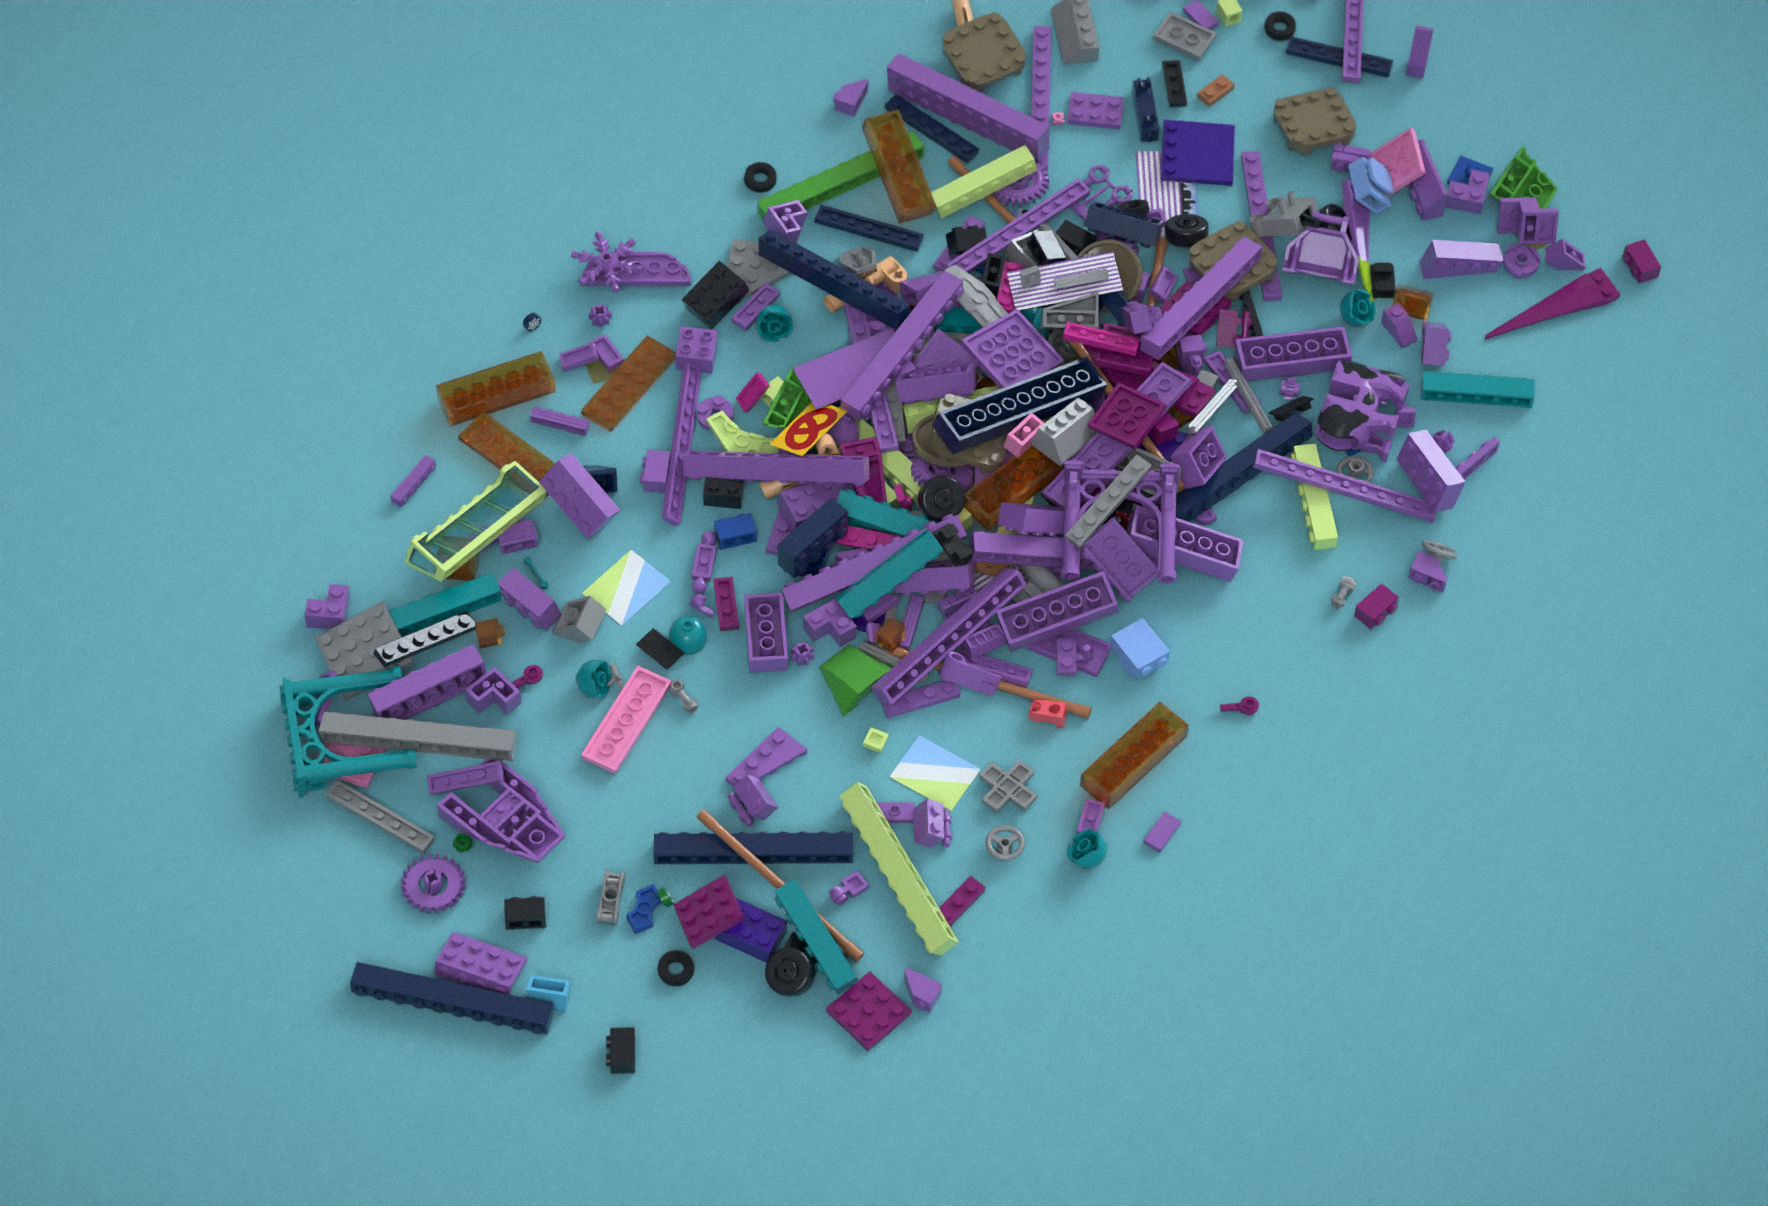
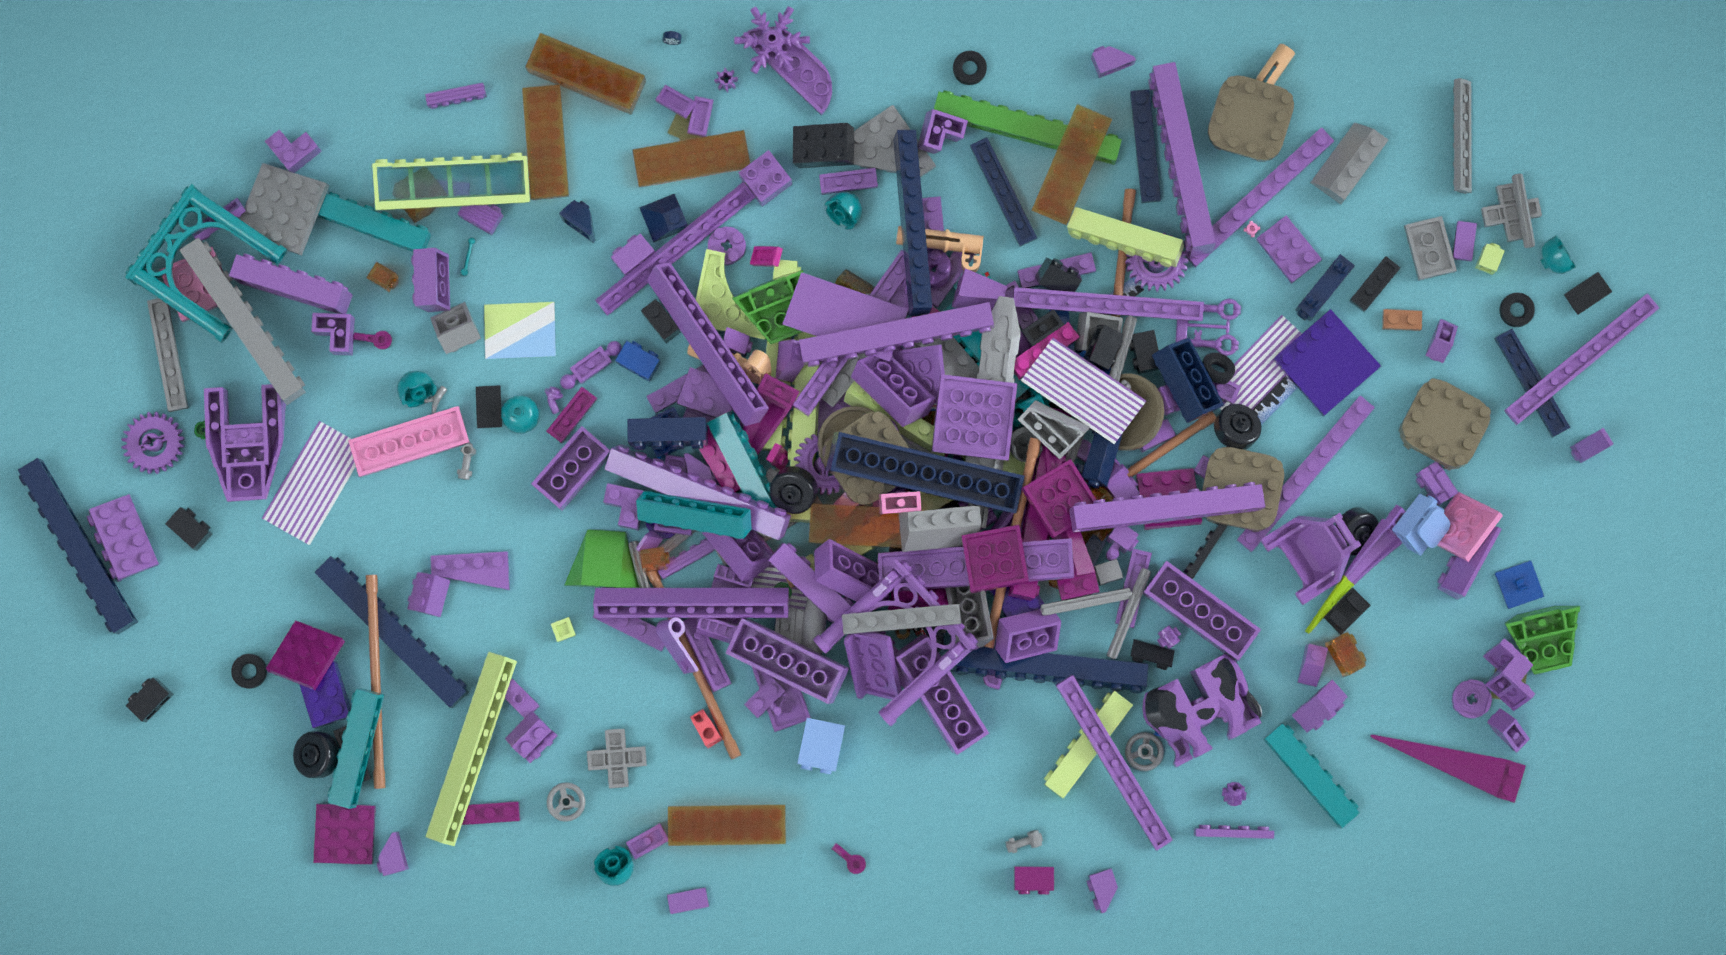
camera: 50 degrees right, 25 degrees up
(424, 639) = (326, 243): plate -> none
(465, 778) = (246, 384): medium lavender tile -> none
(549, 991) = (143, 605): medium azure brick -> none
(559, 421) = (609, 143): medium lavender piece -> none
(579, 495) = (544, 229): medium lavender brick -> none
(584, 810) = (312, 484): none -> sticker
(612, 886) = (246, 581): light grey piece -> none
(640, 917) = (266, 607): blue tile -> none
(652, 430) = (663, 217): none -> dark blue slope
(665, 897) = (294, 610): green tile -> none
(802, 653) = (588, 509): medium lavender gear -> none
(807, 428) = (758, 336): sticker -> none
(852, 885) = (430, 728): medium lavender plate -> none
(859, 260) = (958, 217): light grey piece -> none
(935, 773) = (581, 694): sticker -> none
(952, 544) = (757, 539): black piece -> none
(1030, 276) = (1058, 364): light grey plate -> none
(1082, 278) = (1093, 403): light grey axle -> none
(1101, 338) = (1045, 474): dark pink plate -> none
(1139, 317) = (1089, 483): medium lavender brick -> none
(1163, 284) = (1171, 455): medium lavender tile -> none
(1227, 327) = (1175, 541): magenta plate -> none
(1256, 80) = (1441, 341): none -> medium lavender slope
(1286, 216) = (1320, 496): light grey piece -> none
(1357, 308) = (1293, 621): teal cylinder -> none
(1406, 416) = (1231, 746): medium lavender tile -> none
(1430, 470) = (1190, 813): medium lavender brick -> none
(1439, 550) = (1127, 881): light grey piece -> none
(1460, 258) = (1423, 654): medium lavender wedge -> none
(1470, 196) = (1494, 608): medium lavender brick -> none
(1641, 261) = (1563, 791): magenta brick -> none

